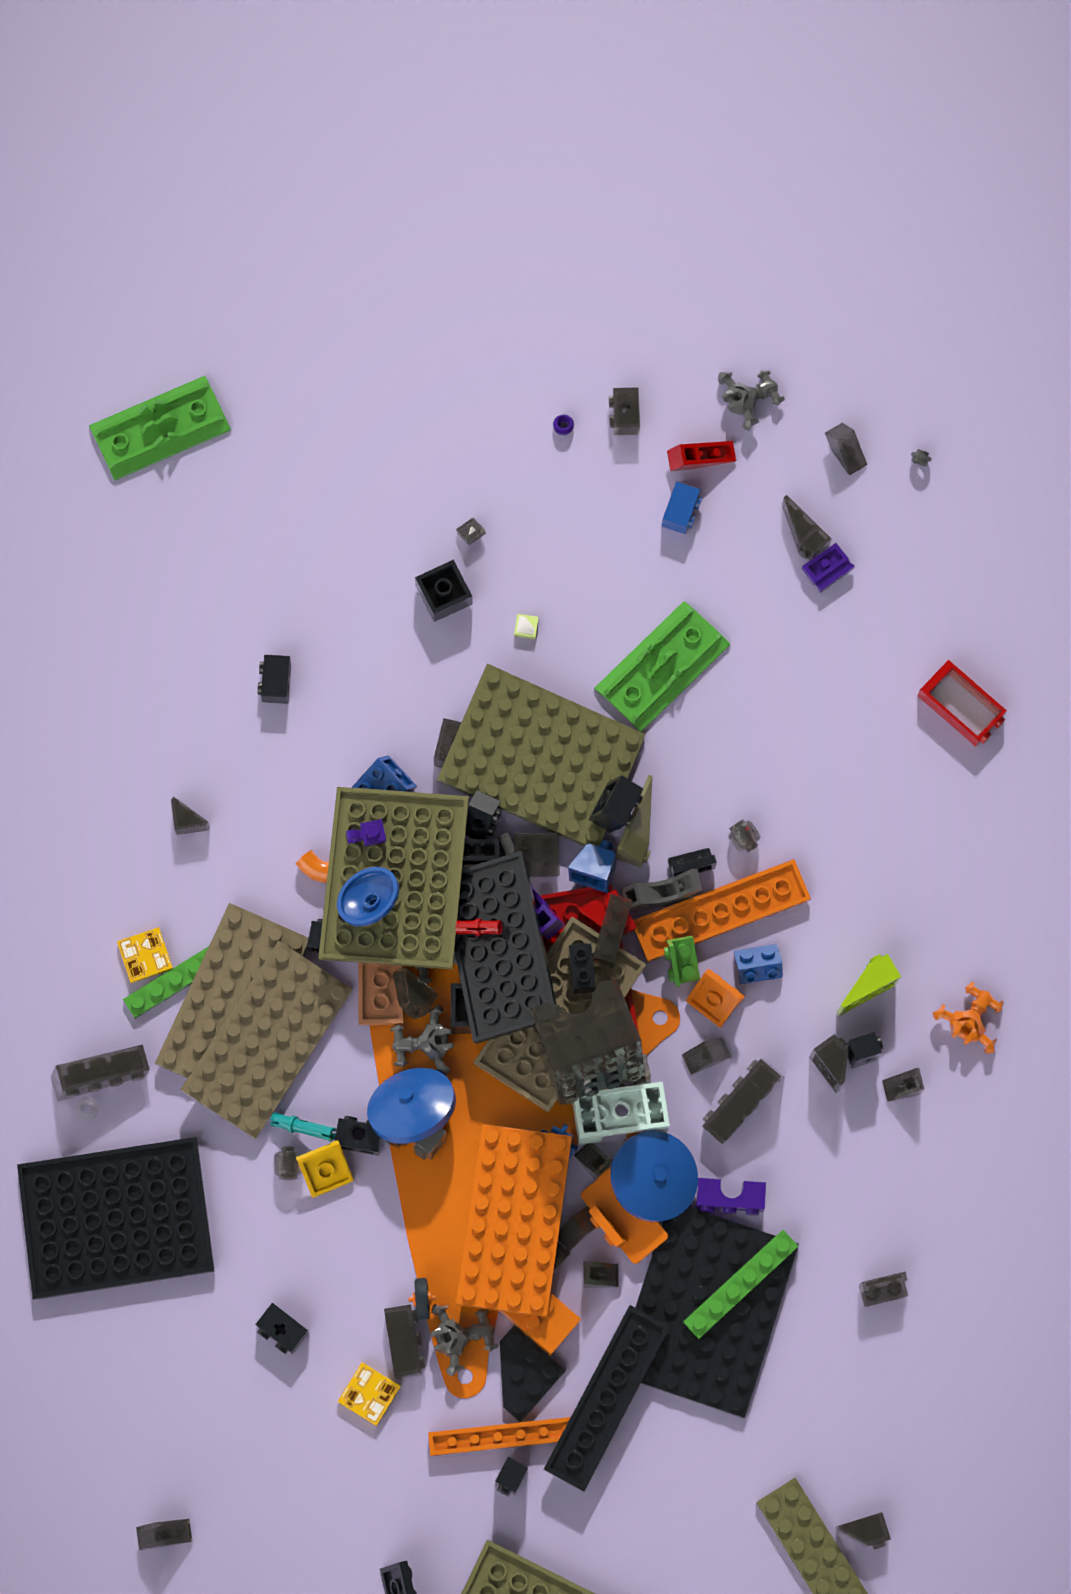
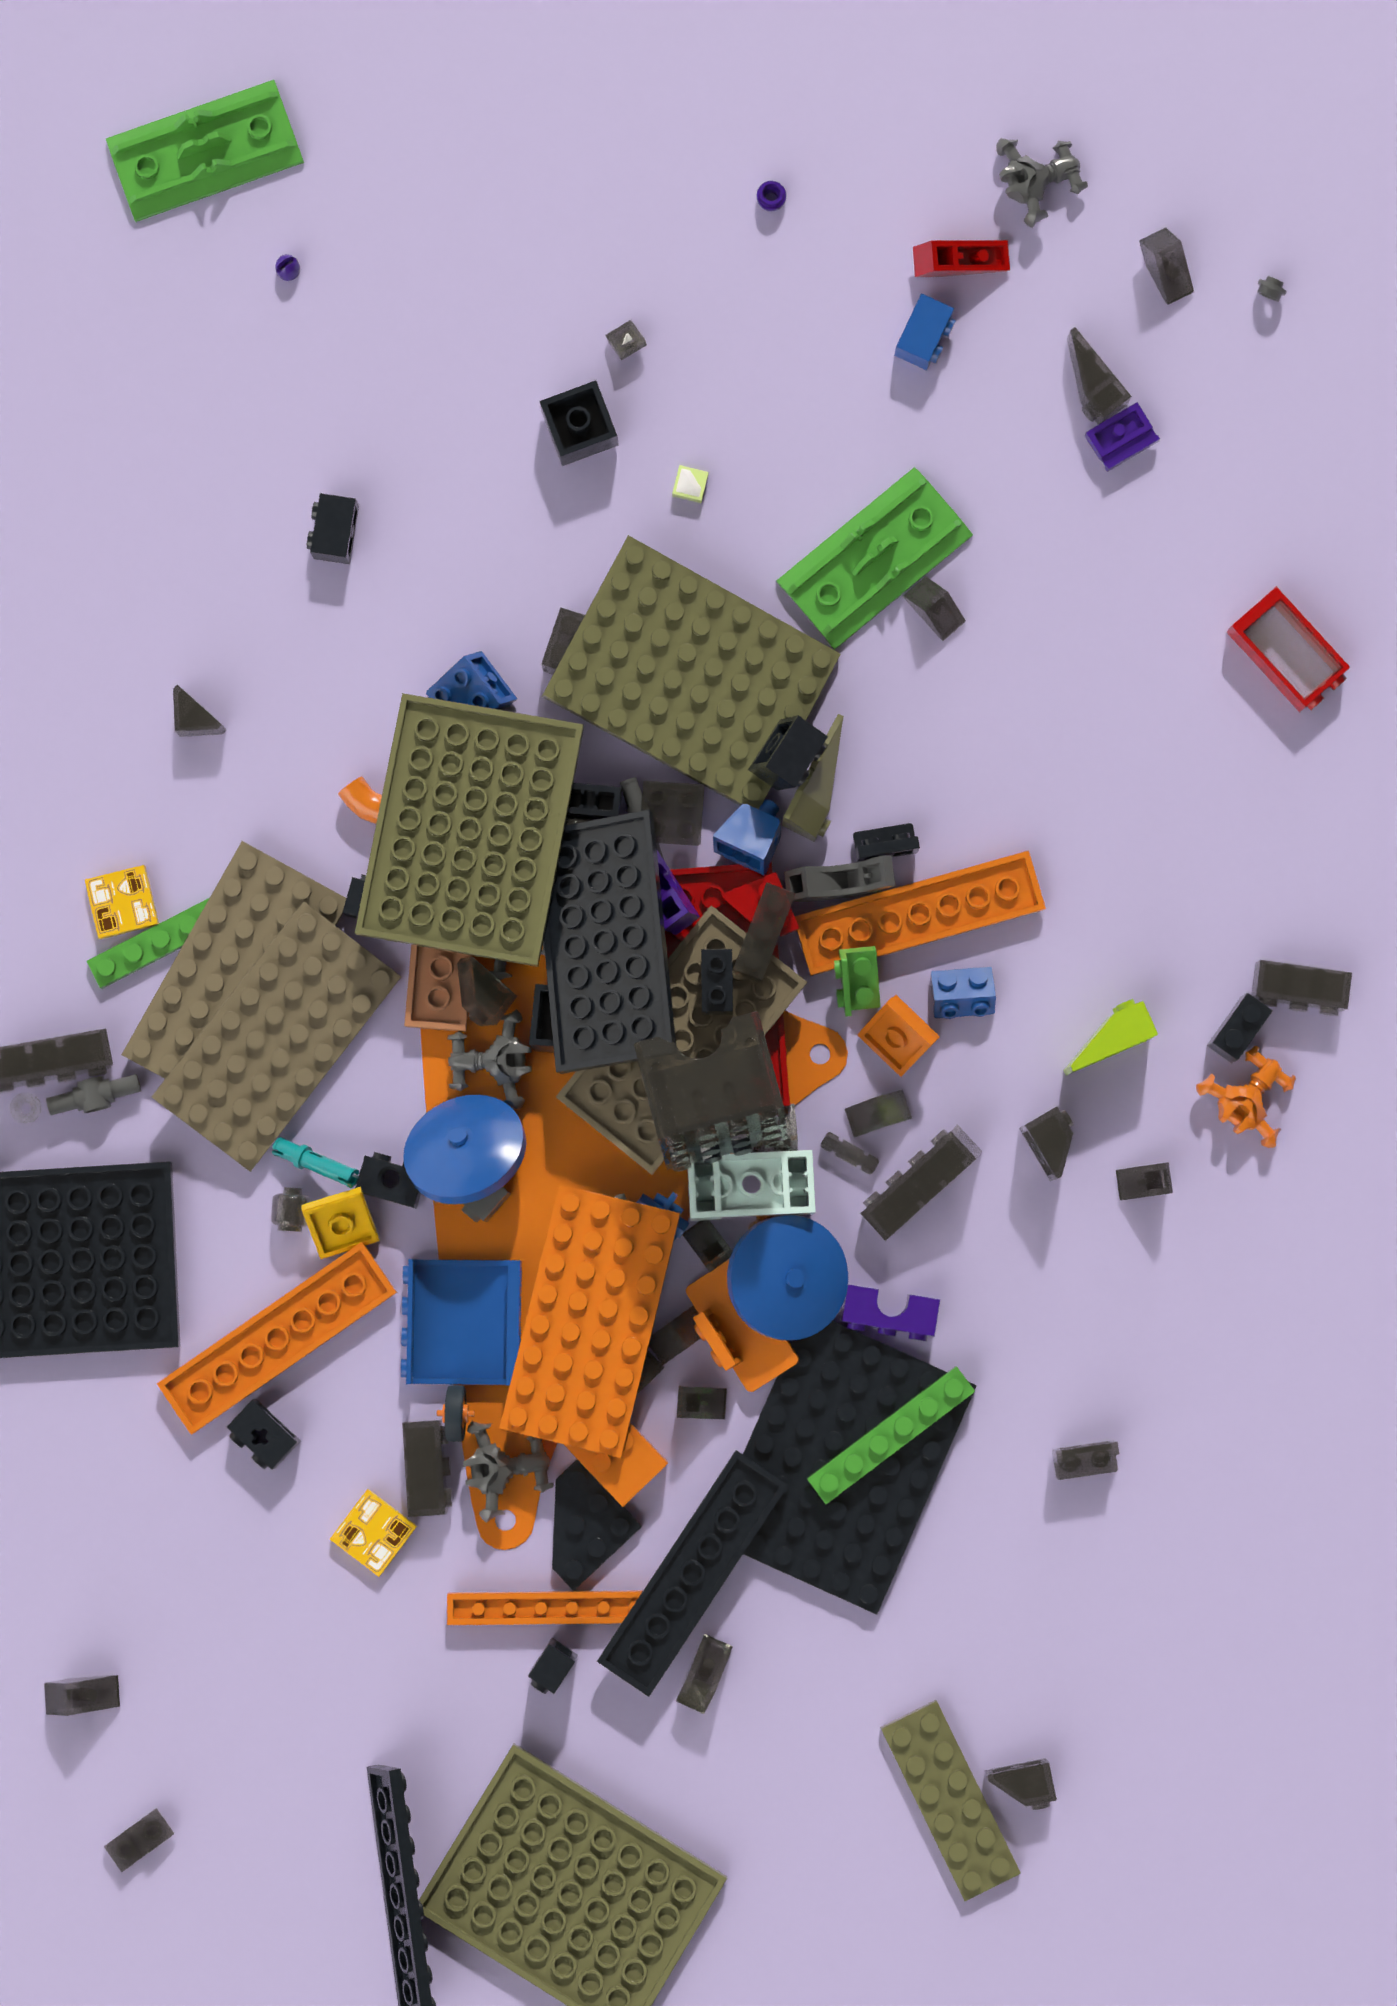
camera: 10 degrees right, 10 degrees up
(136, 1094) = (93, 1094): none -> dark grey pin
(228, 505) = (290, 271): none -> dark purple hinge
(285, 1258) = (276, 1338): none -> orange plate
(368, 896) = (428, 856): blue dish -> none
(371, 833) = (442, 764): dark purple plate -> none
(420, 1233) = (461, 1321): none -> blue panel
(479, 927) = (579, 912): red pin -> none
(482, 815) = (601, 752): black brick -> none
(622, 1473) = (704, 1674): none -> clear smoke slope
(628, 400) = (864, 167): clear smoke brick -> none
(689, 1085) = (849, 1153): none -> clear smoke axle
(709, 696) = (935, 607): none -> clear smoke slope
(744, 836) = (963, 811): clear smoke head -> none
(864, 1049) = (1096, 1128): black brick -> none
(958, 970) = (1239, 1028): none -> black brick
(999, 937) = (1301, 987): none -> clear smoke brick

